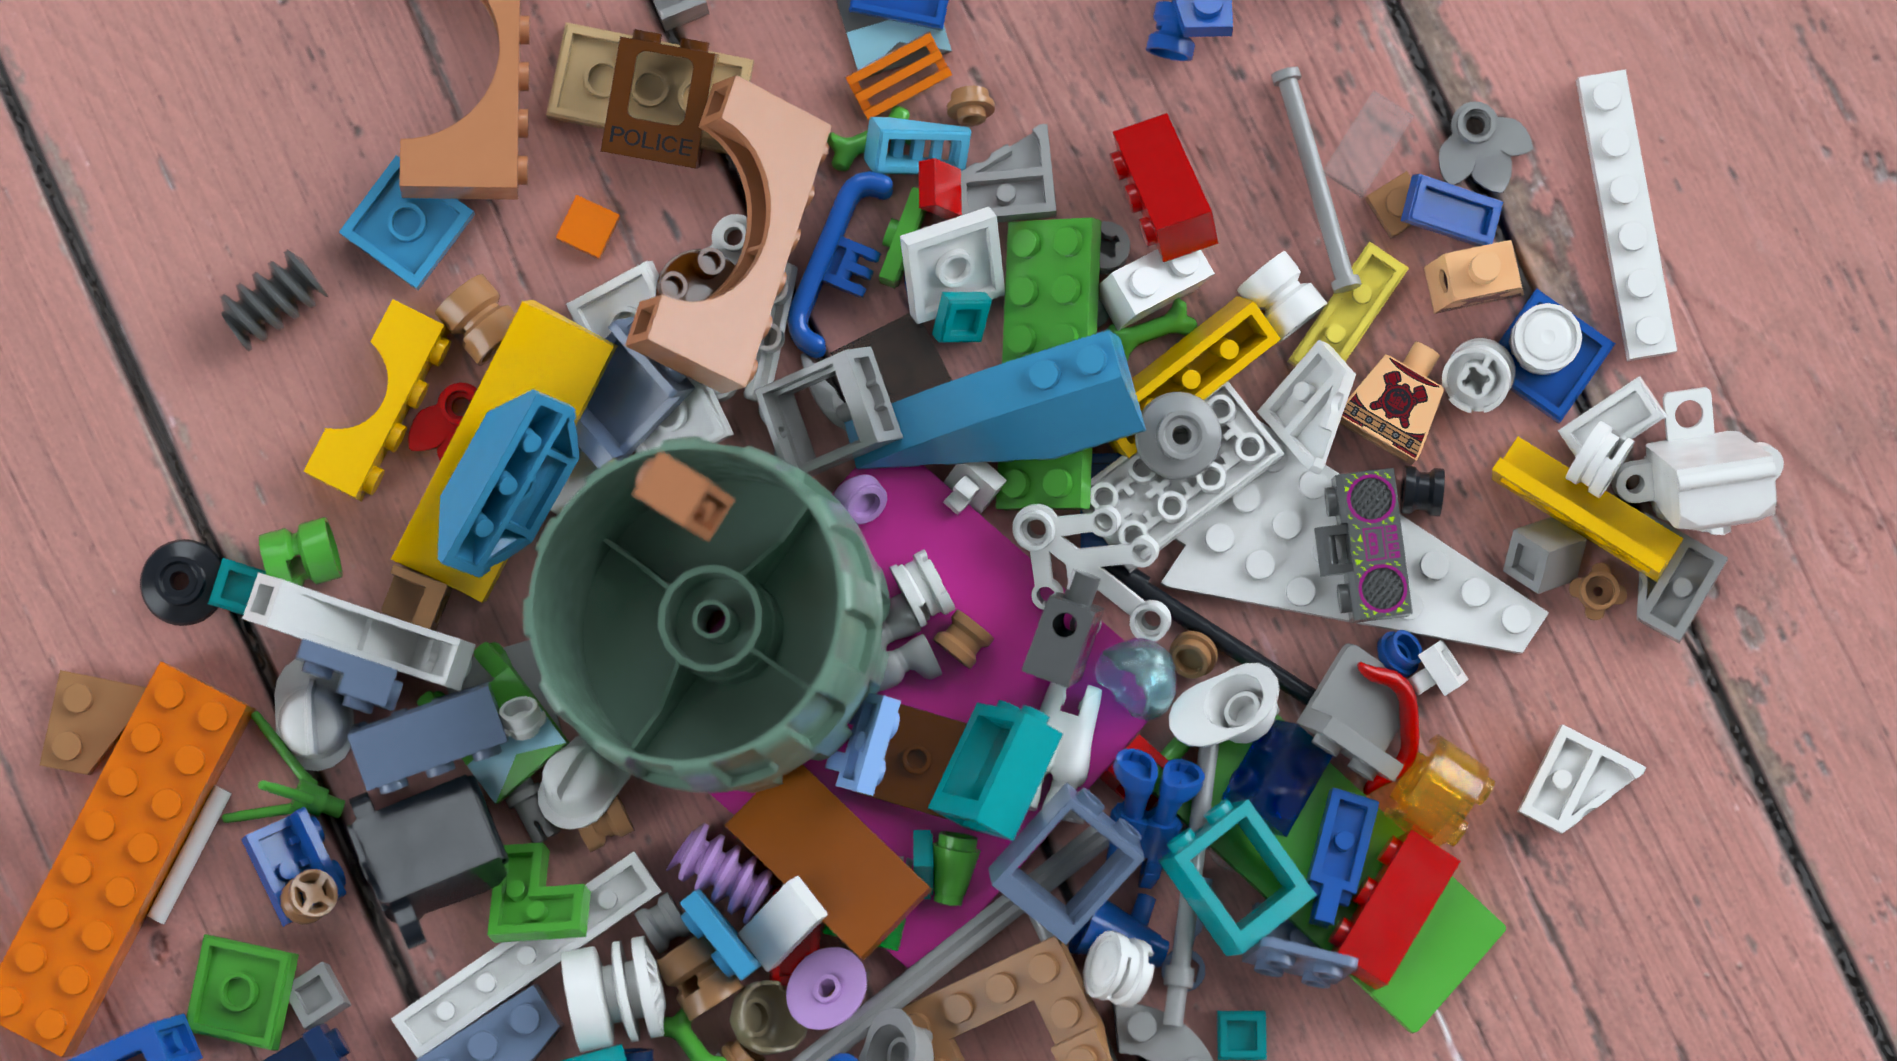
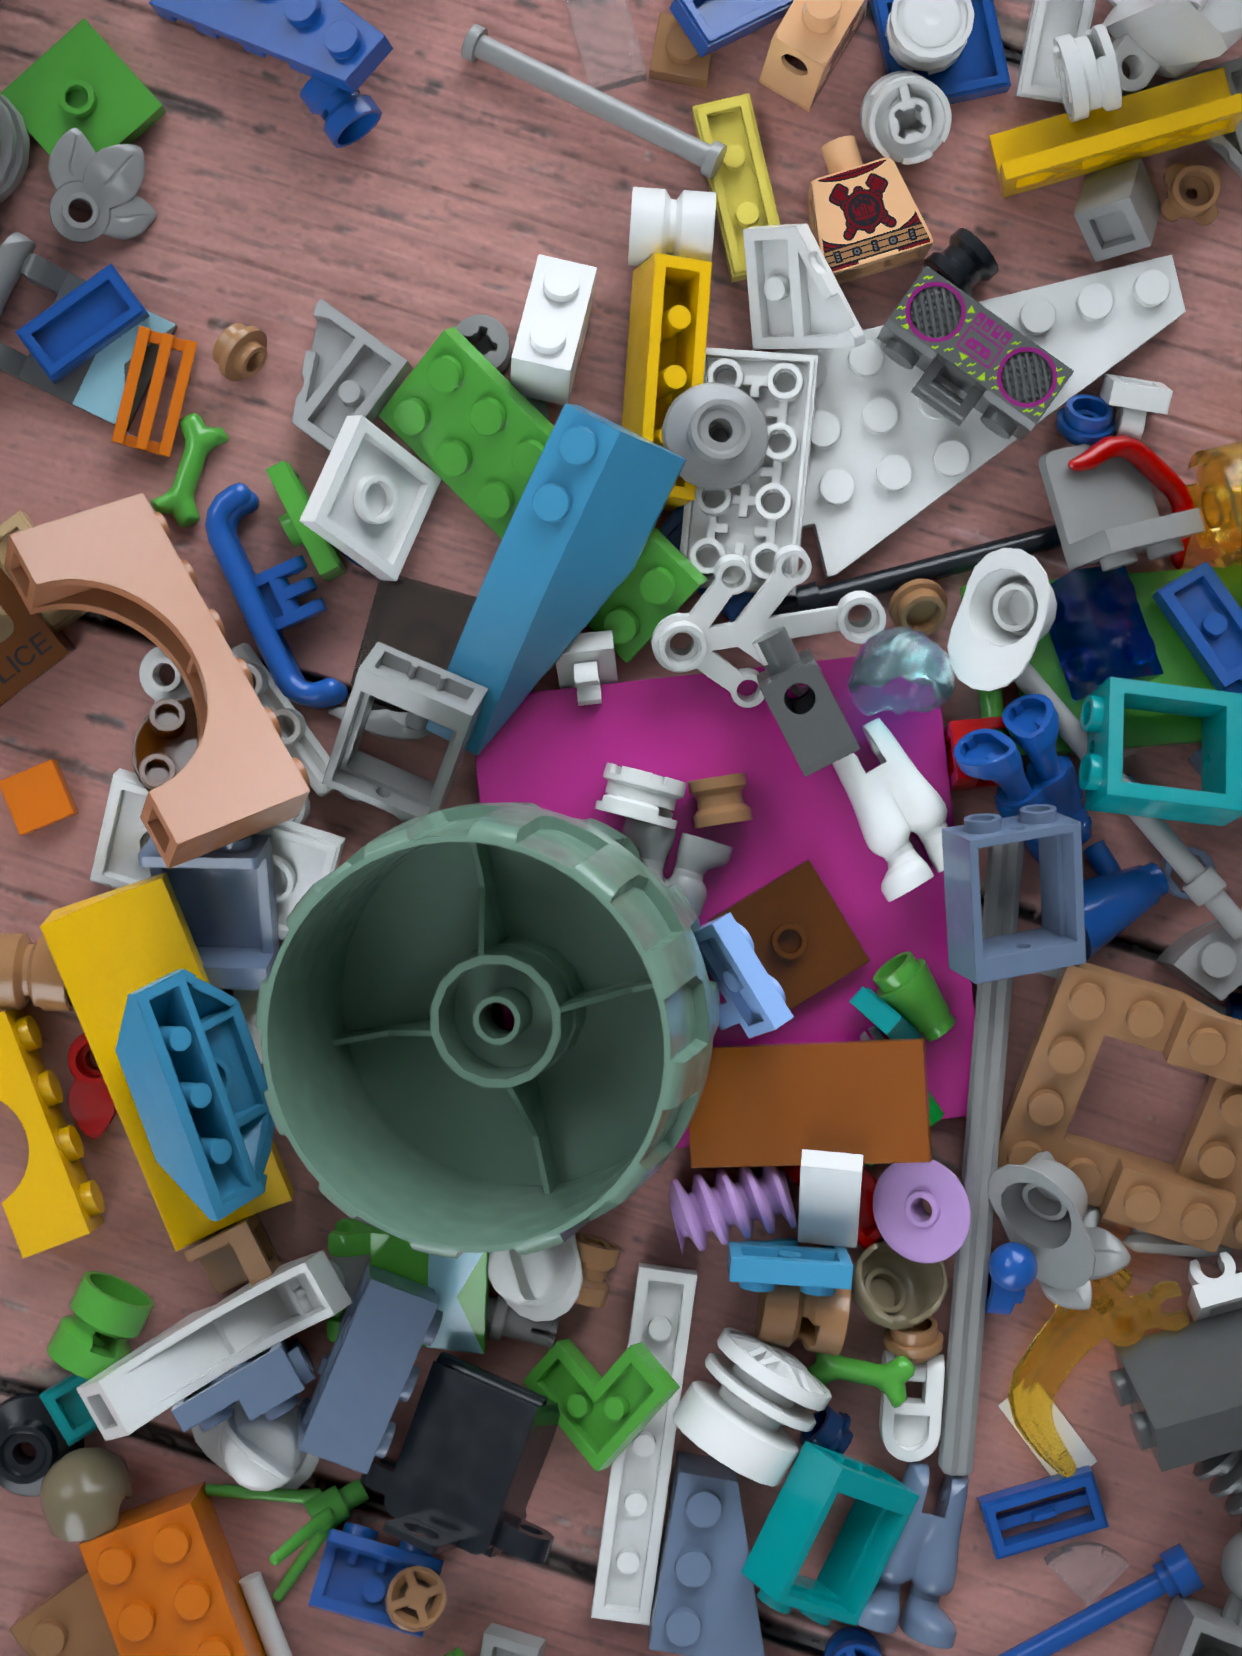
camera: 50 degrees left, 5 degrees up
(190, 638) = (85, 1493): none -> dark tan hair
(522, 718) = (427, 1272): white plate -> none
(662, 922) = (723, 1300): light grey wheel -> none
(682, 495) = (354, 959): nougat brick -> none
(862, 498) = (508, 776): lavender tile -> none
(898, 130) = (230, 467): medium azure slope -> none
(940, 188) = (289, 446): red tile -> none
(961, 317) = (426, 535): teal tile -> none
(996, 769) = (894, 868): teal window -> none
(1118, 969) = (1150, 935): white wheel -> none
(1163, 188) = (477, 240): red brick -> none
(1173, 321) = (603, 350): bright green piece -> none

